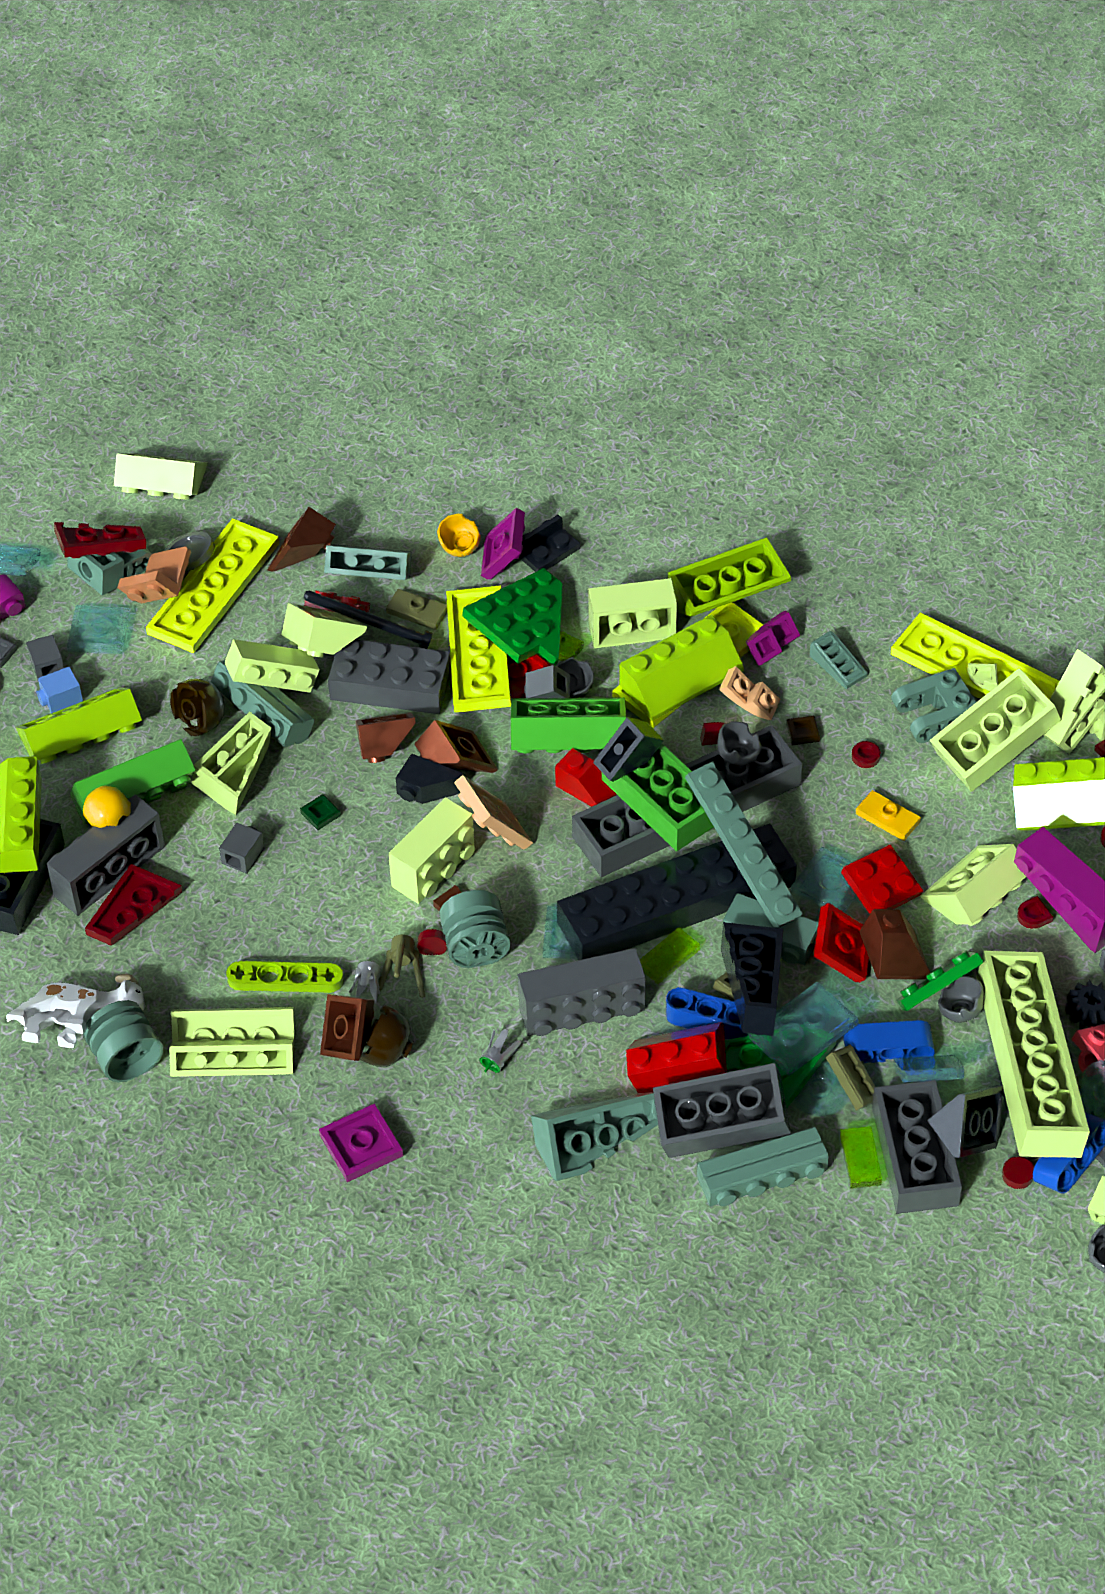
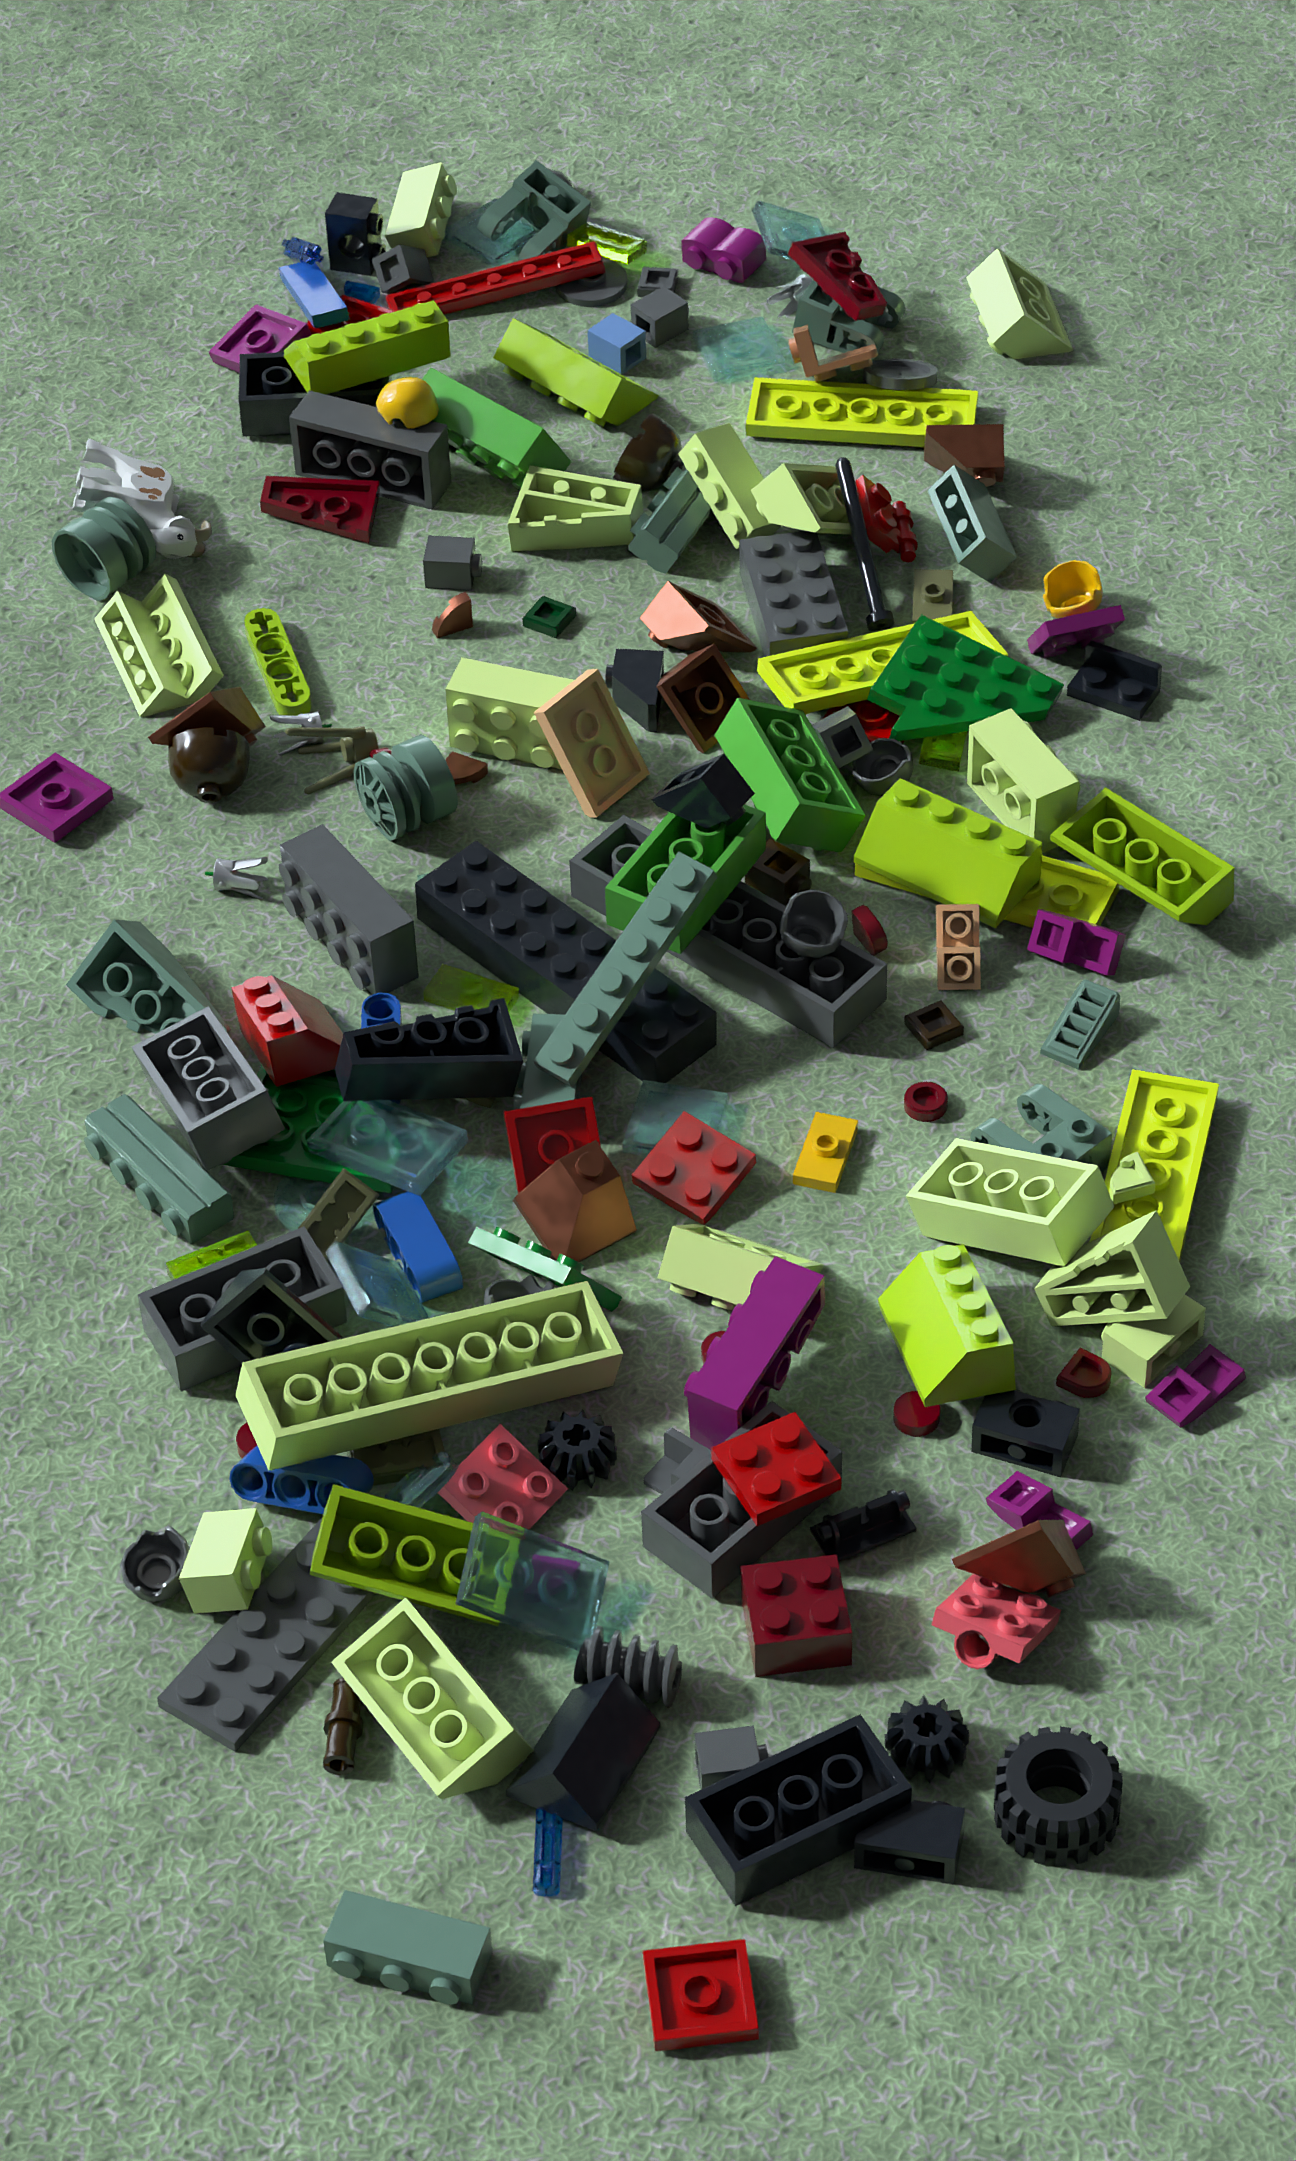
camera: 70 degrees right, 5 degrees down
(64, 575) = (793, 291): none -> flat silver piece
(296, 862) = (455, 617): none -> copper tile

